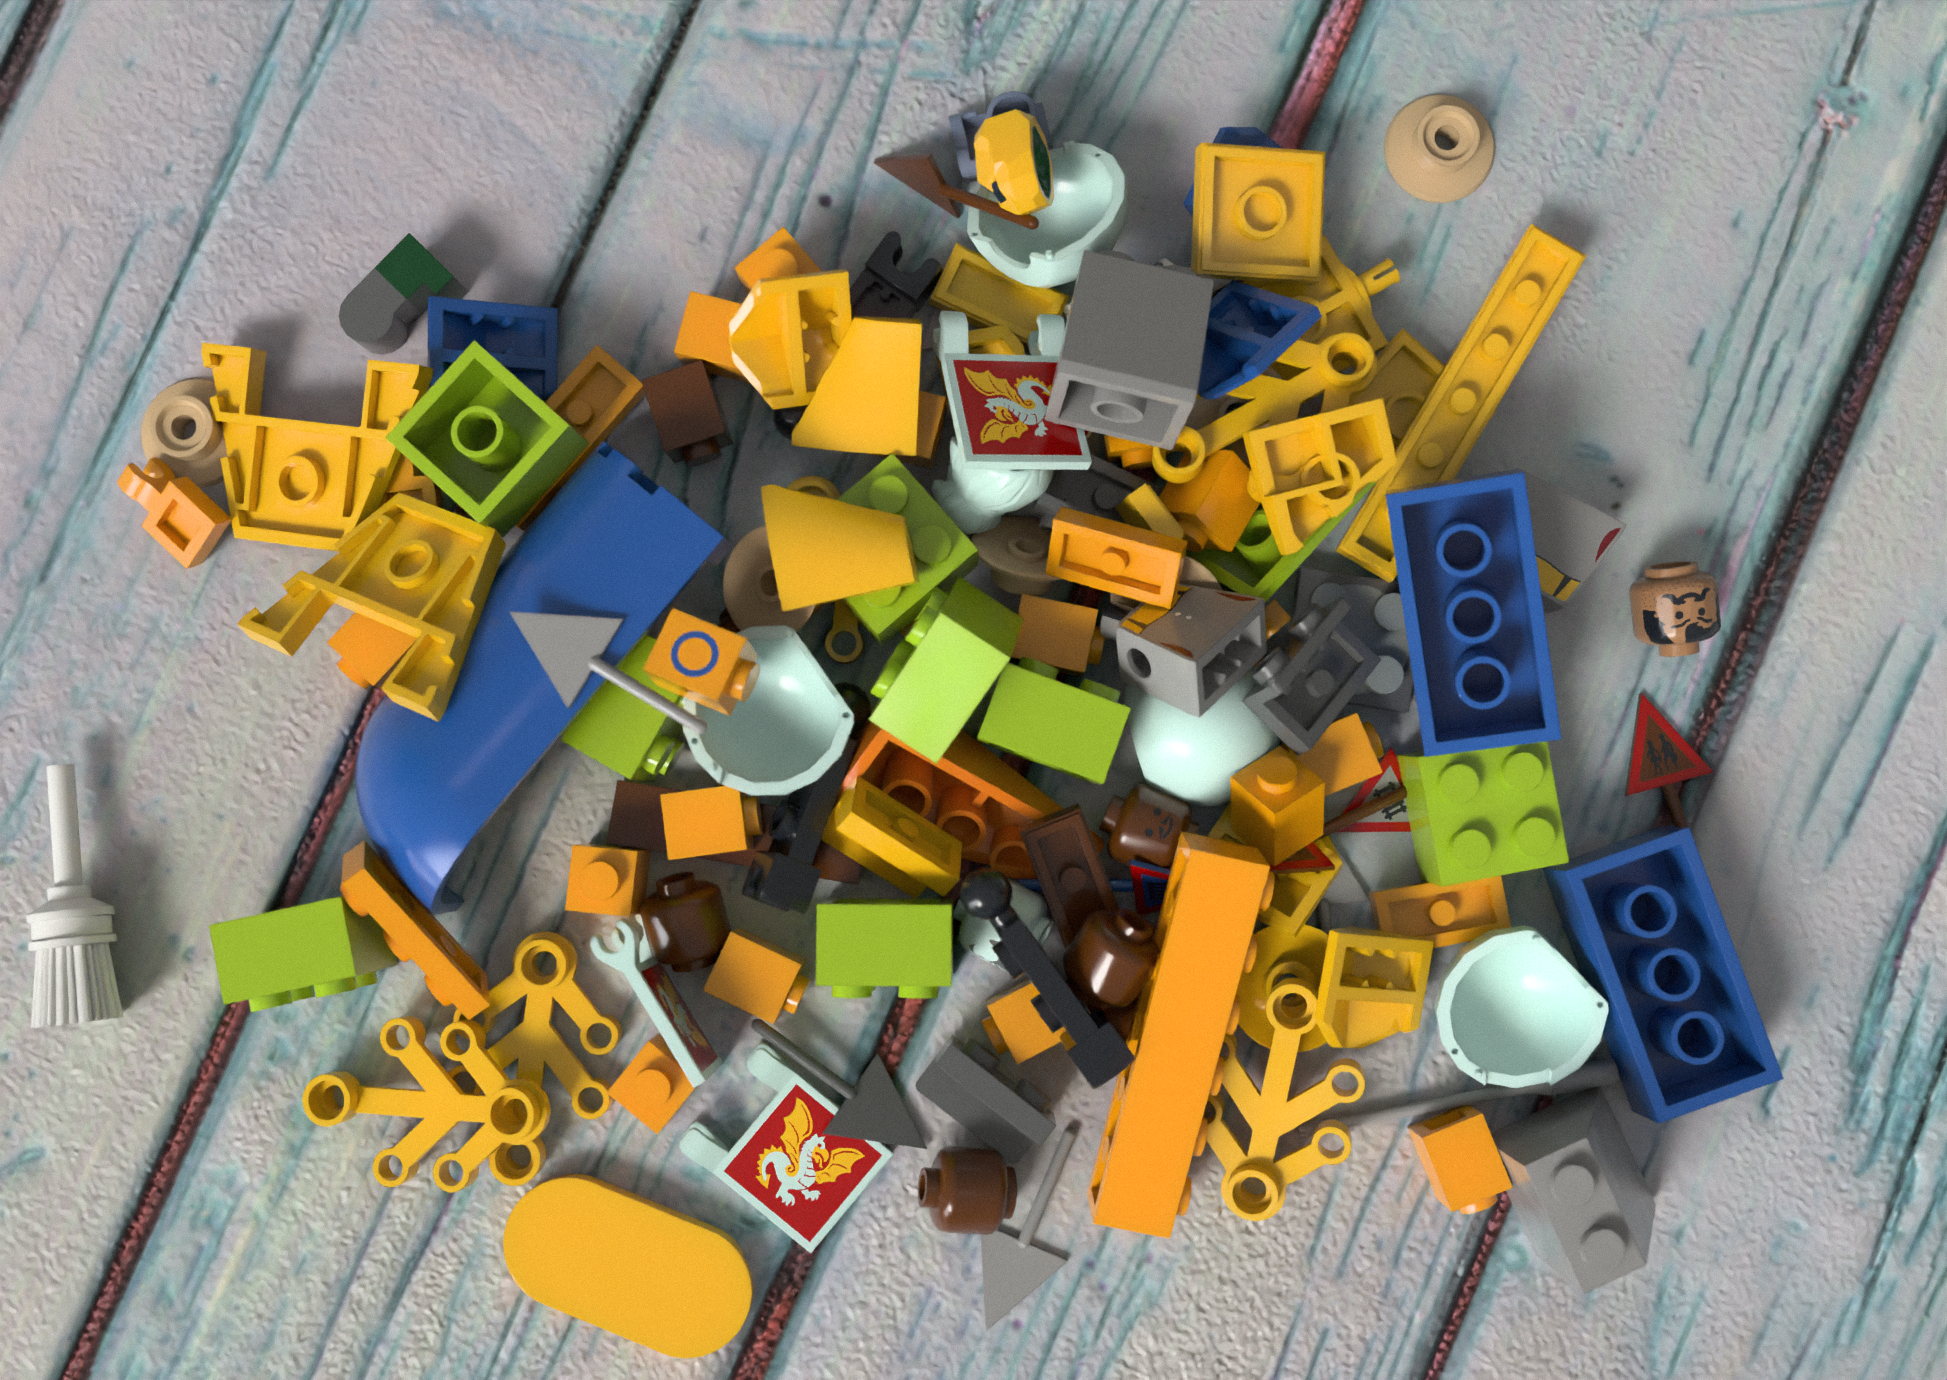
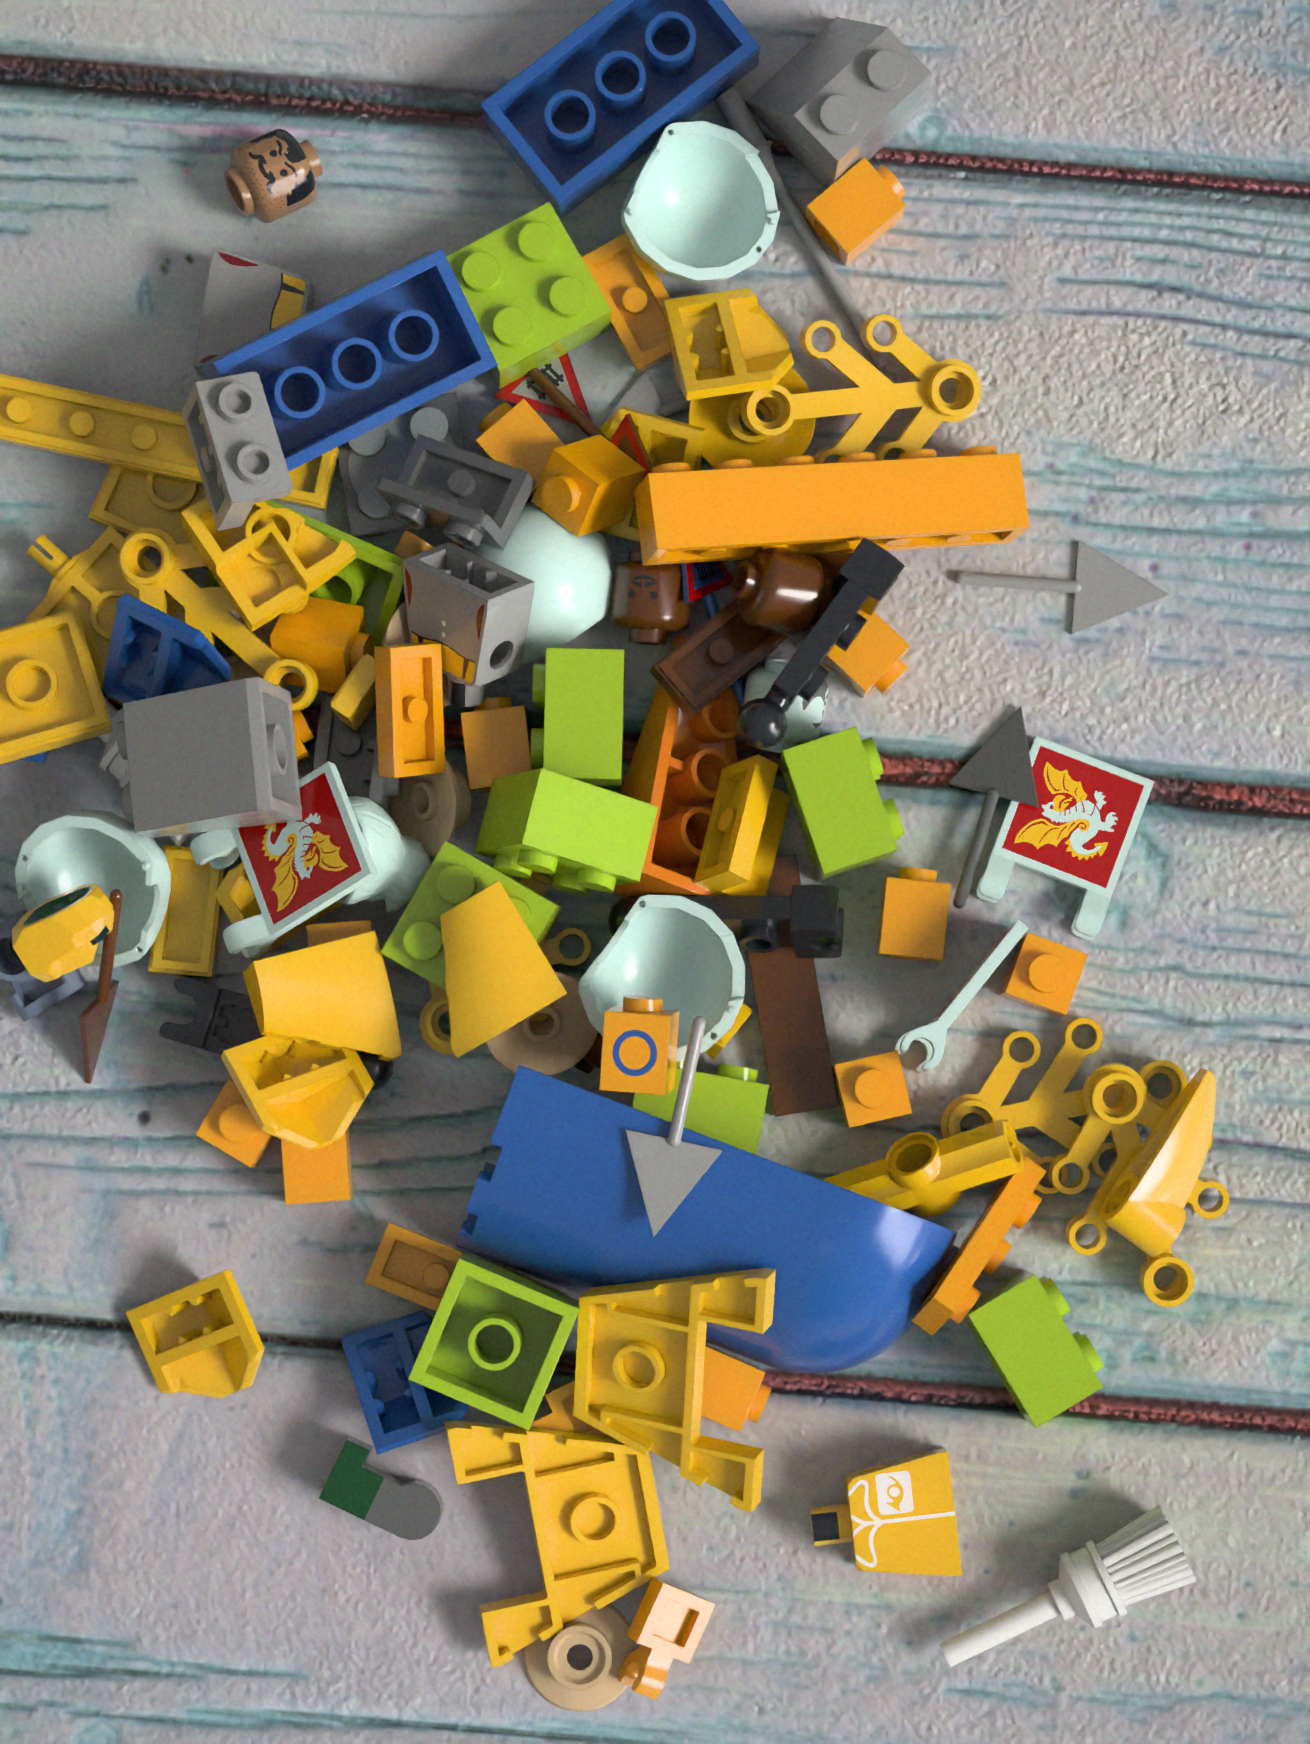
camera: 115 degrees left, 0 degrees up
(202, 765) = (896, 1517): none -> yellow torso
(424, 1129) = (1156, 1184): none -> yellow piece
(507, 903) = (933, 1173): none -> yellow piece
(603, 177) = (199, 1338): none -> yellow slope
(628, 1265) = (1224, 947): yellow tile -> none
(685, 922) = (886, 1002): reddish brown head -> none
(688, 414) = (403, 1169): reddish brown brick -> none
(710, 821) = (783, 1007): light orange brick -> none
(968, 1190) = (1042, 653): reddish brown head -> none
(985, 1101) = (956, 666): dark grey bracket -> none
(1433, 469) = (235, 446): none -> light grey bracket
(1660, 759) = (420, 142): piece -> none

